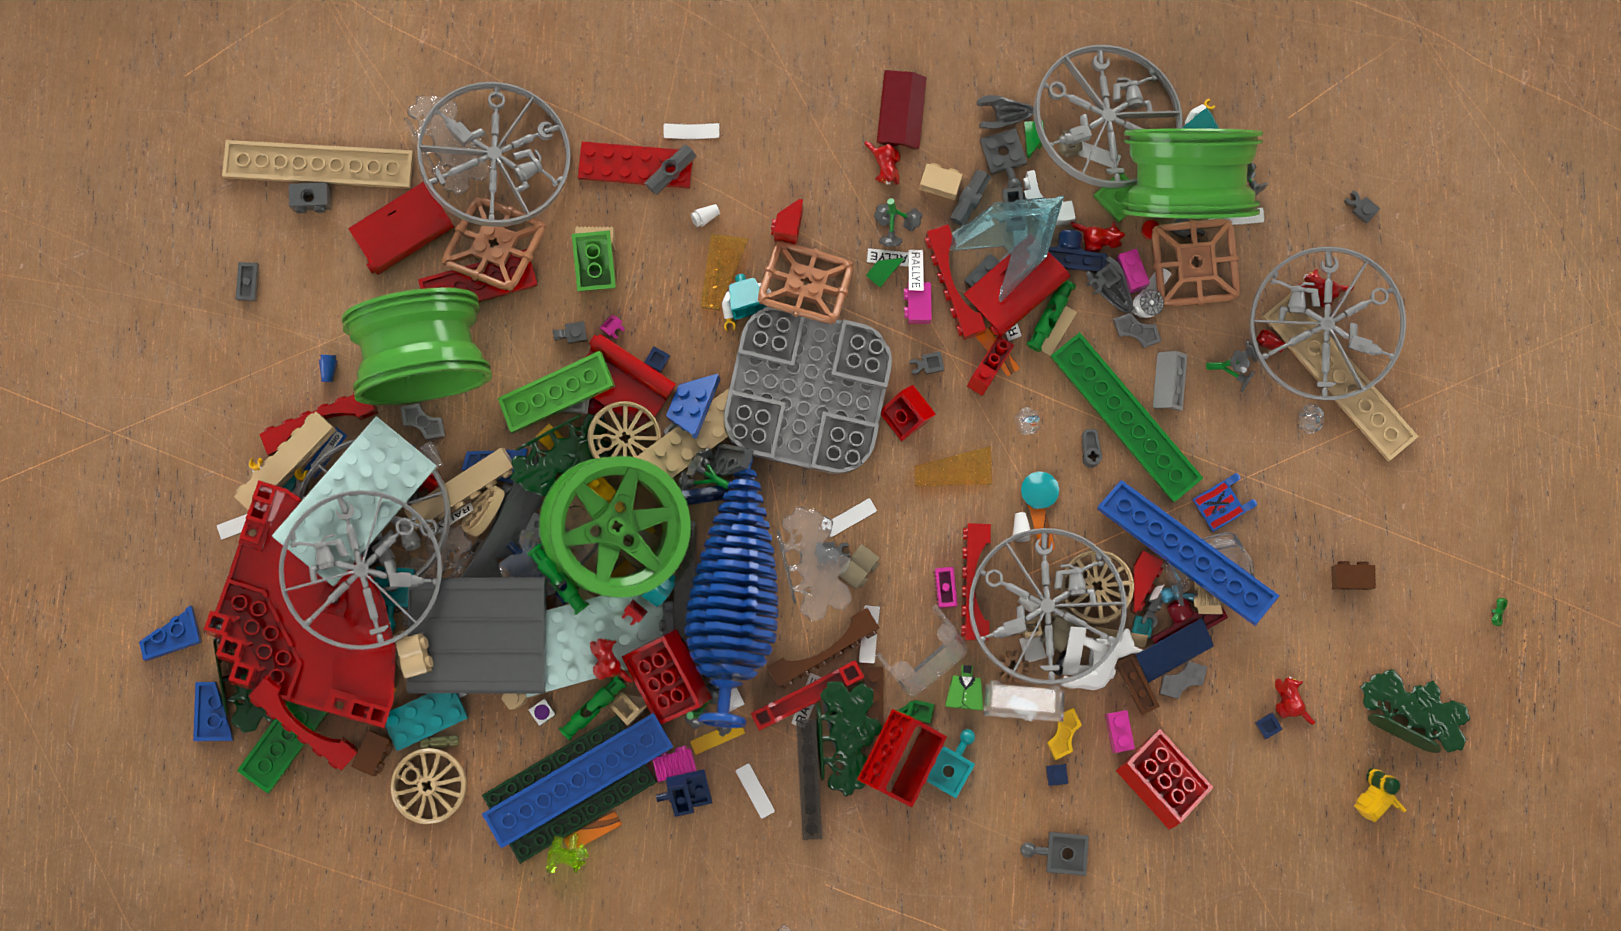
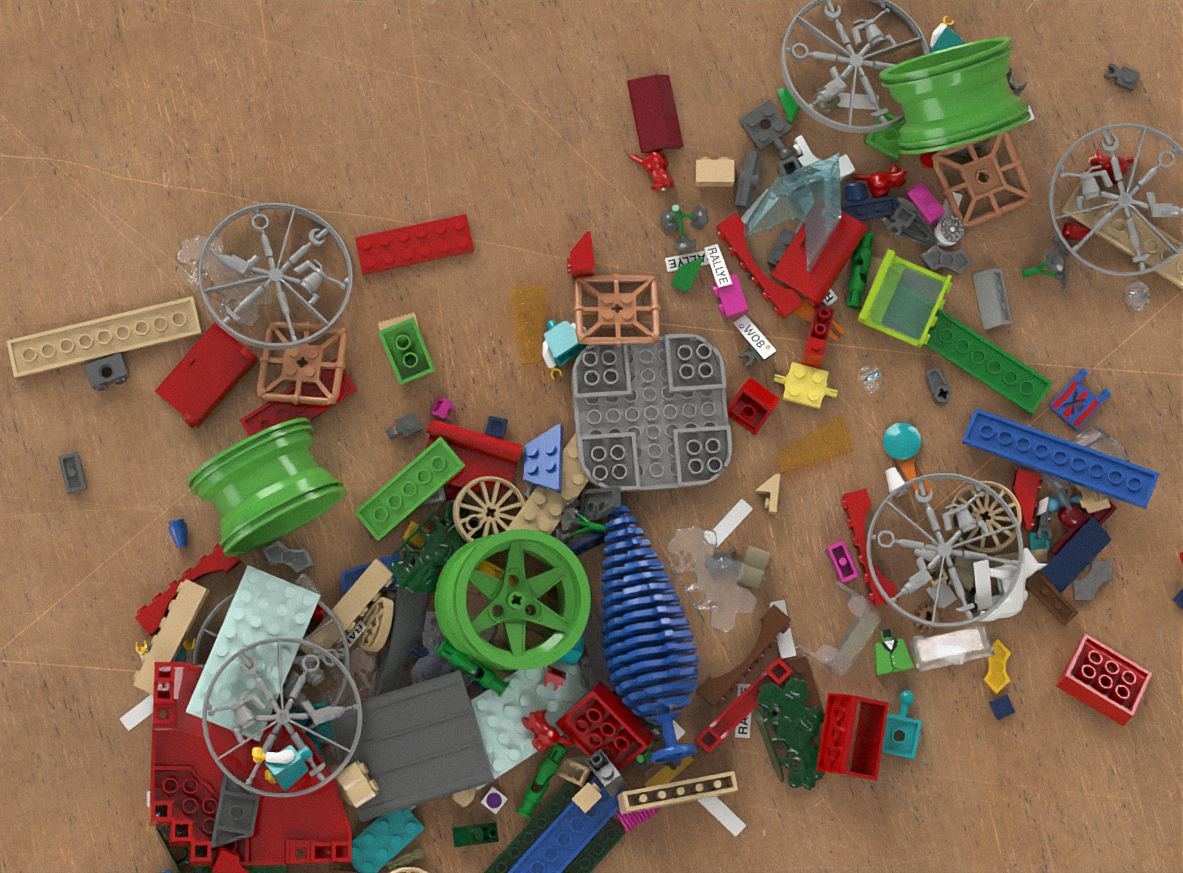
camera: 20 degrees left, 0 degrees up
(174, 636) = (113, 839): blue wing -> none
(289, 649) = (234, 814): none -> dark grey wing
(335, 440) = (204, 612): sticker -> none
(346, 617) = (285, 766): none -> teal torso
(513, 739) = (475, 834): none -> dark green slope
(629, 736) = (587, 796): none -> tan brick
(654, 719) = (606, 773): none -> dark grey slope
(679, 160) = (446, 250): dark grey piece -> none
(686, 792) = (658, 833): dark blue plate -> none
(691, 131) = (458, 195): white sticker -> none
(704, 215) = (497, 273): white cone -> none
(716, 759) = (677, 792): none -> tan brick
(809, 779) = (770, 784): clear smoke brick -> none
(900, 496) = (770, 487): none -> tan slope
(919, 710) = (853, 686): green slope -> none
(929, 347) = (754, 336): none -> white sticker
(964, 408) = (805, 385): none -> light yellow plate
(1006, 110) = (757, 85): dark grey animal -> none
(1056, 844) = (1022, 773): dark grey plate -> none
(1084, 355) = (904, 300): none -> clear light blue panel
(1119, 731) = (1048, 648): dark pink brick -> none

